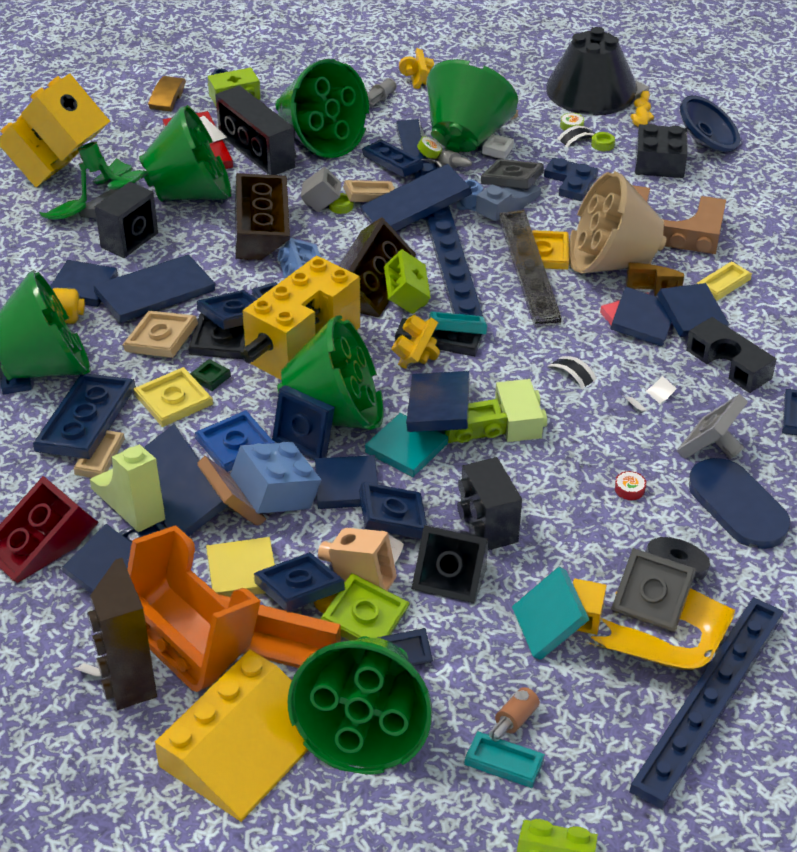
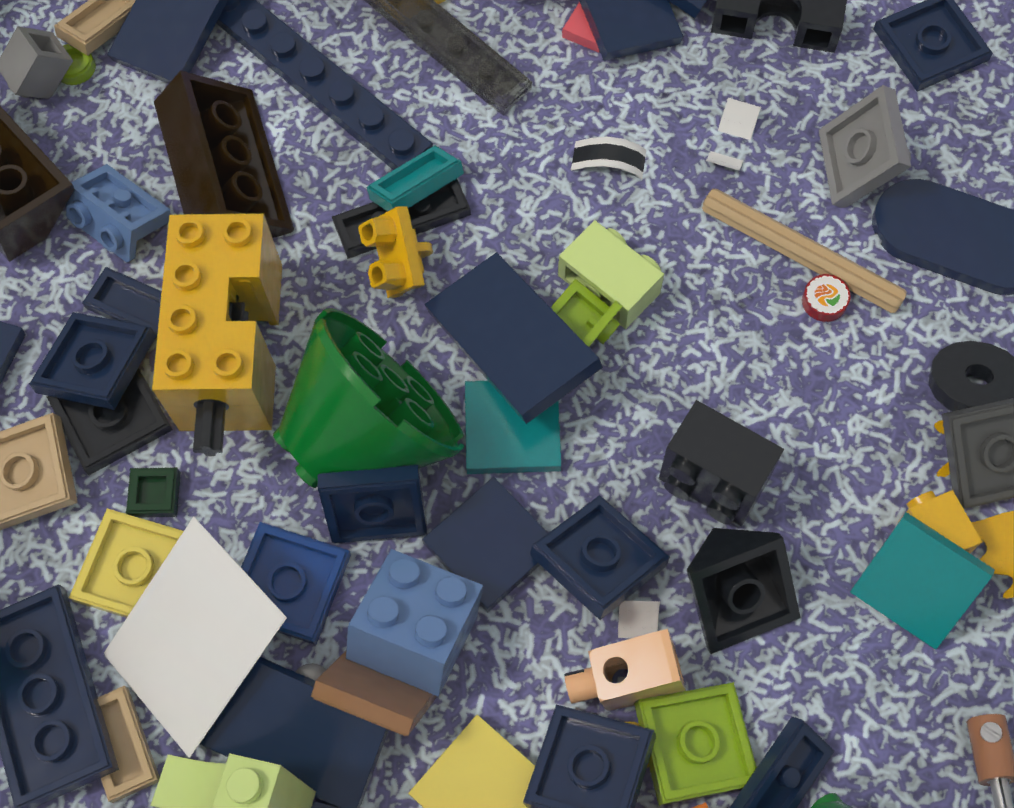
camera: 35 degrees left, 25 degrees up
(174, 417) = (193, 636): none -> white sticker
(407, 282) = (294, 154): lime brick -> none
(639, 460) = (803, 250): none -> tan axle

